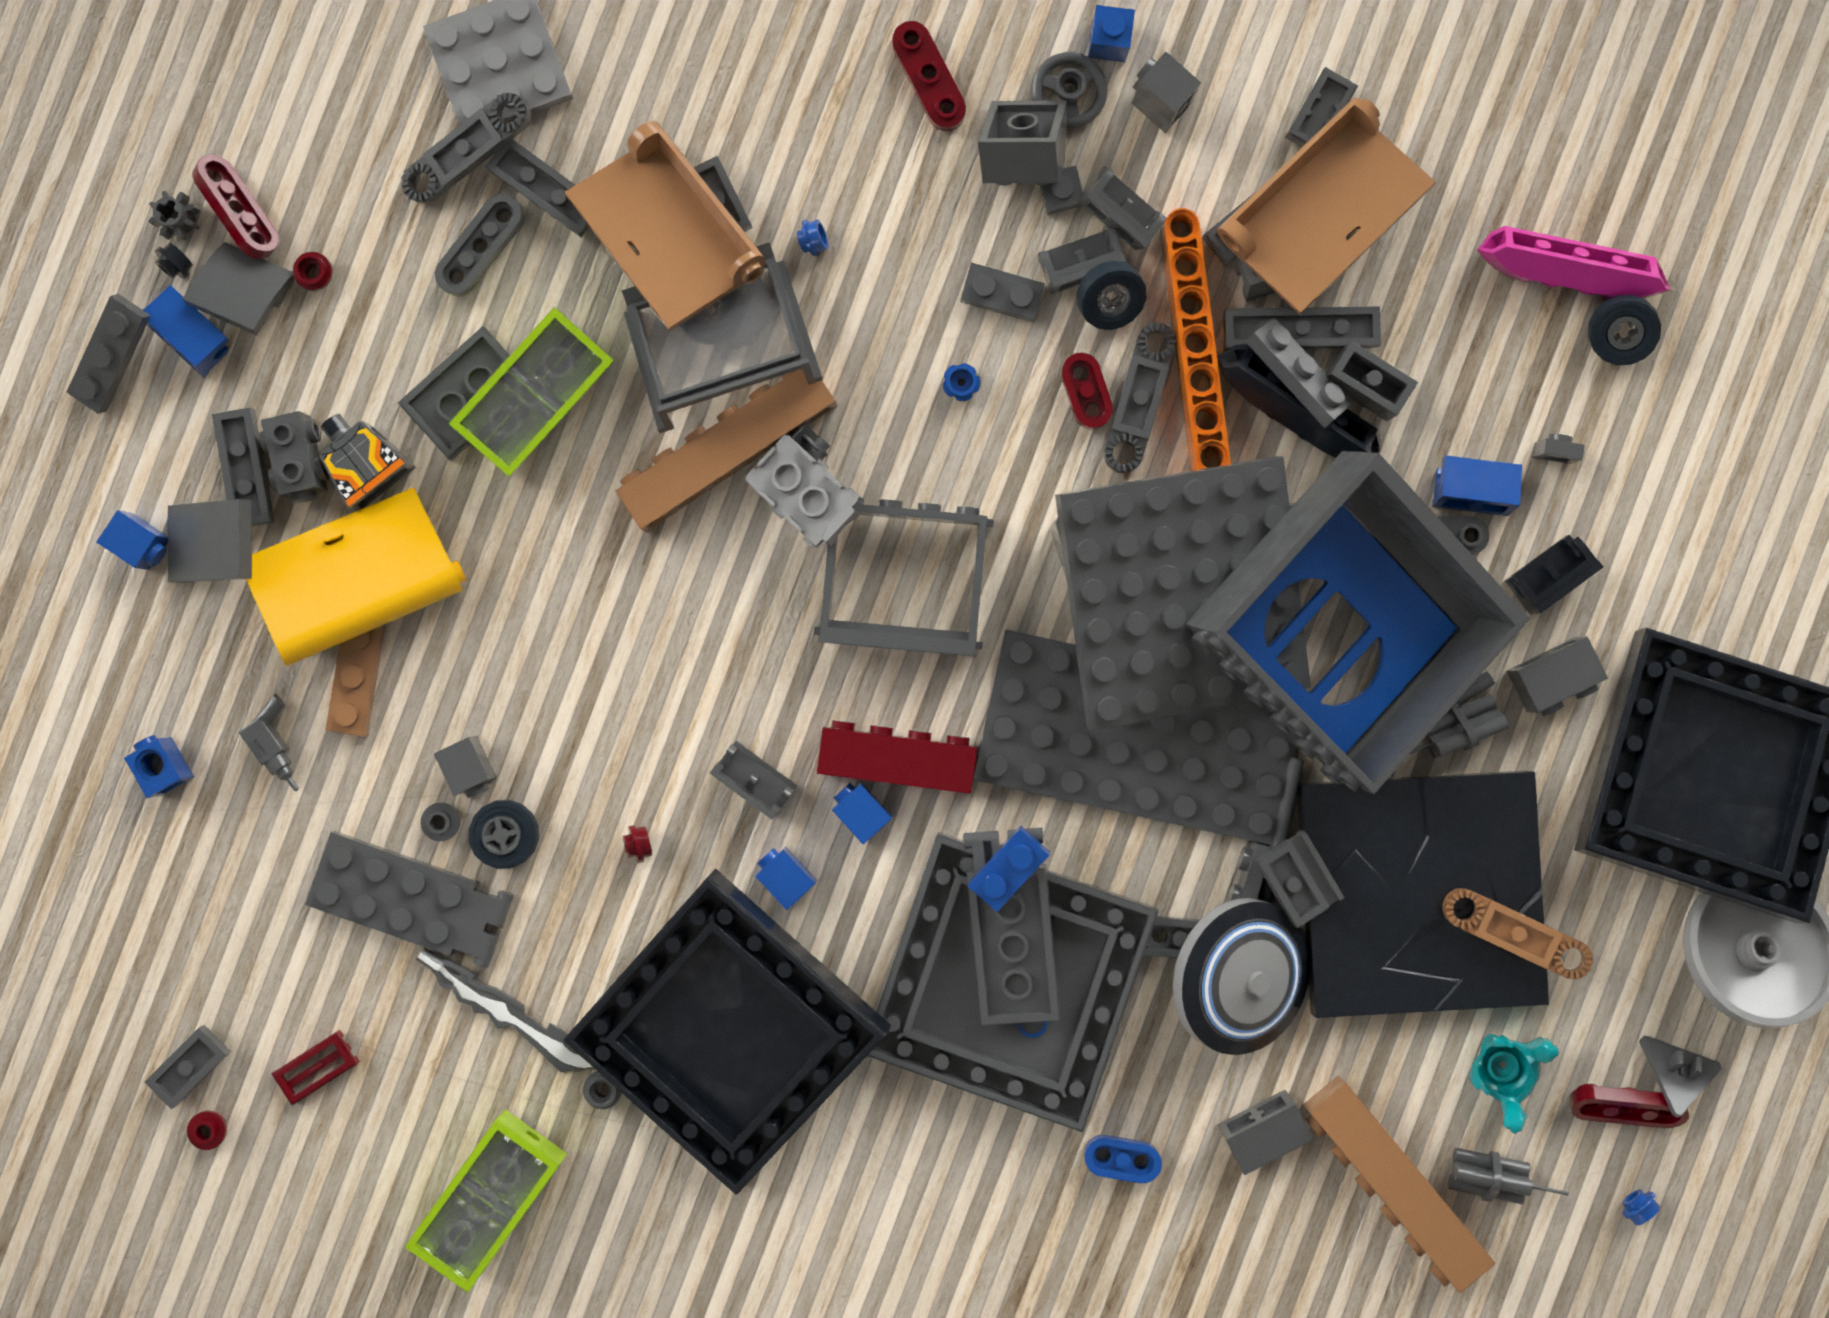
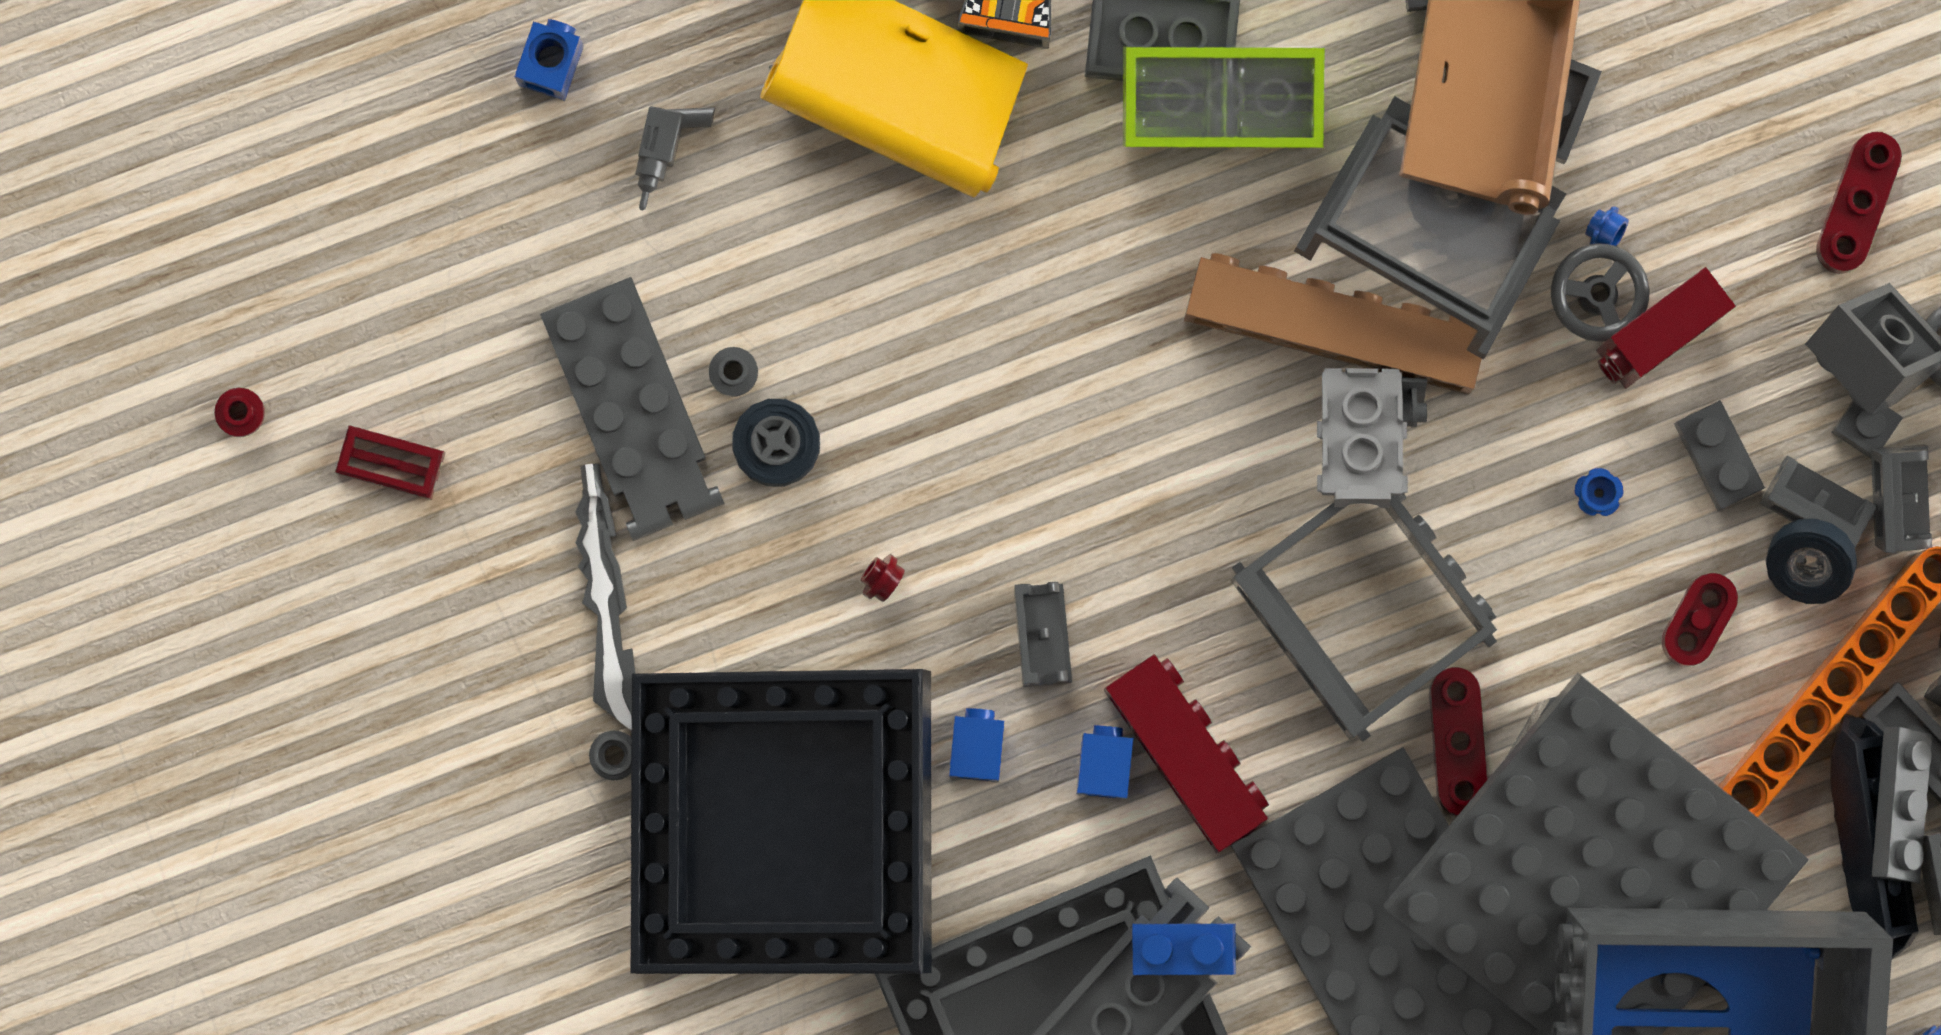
camera: 45 degrees right, 5 degrees down
(187, 1067) = (285, 340): dark grey plate -> none
(355, 683) = (792, 174): medium nougat plate -> none
(465, 767) = (808, 349): dark grey brick -> none
(485, 1200) = (413, 737): clear brick -> none
(873, 285) = (1563, 287): none -> dark grey piece
(900, 257) = (1664, 329): none -> dark red window
(1013, 589) = (1453, 717): none -> dark red plate
(1140, 397) = (1739, 676): dark grey plate -> none

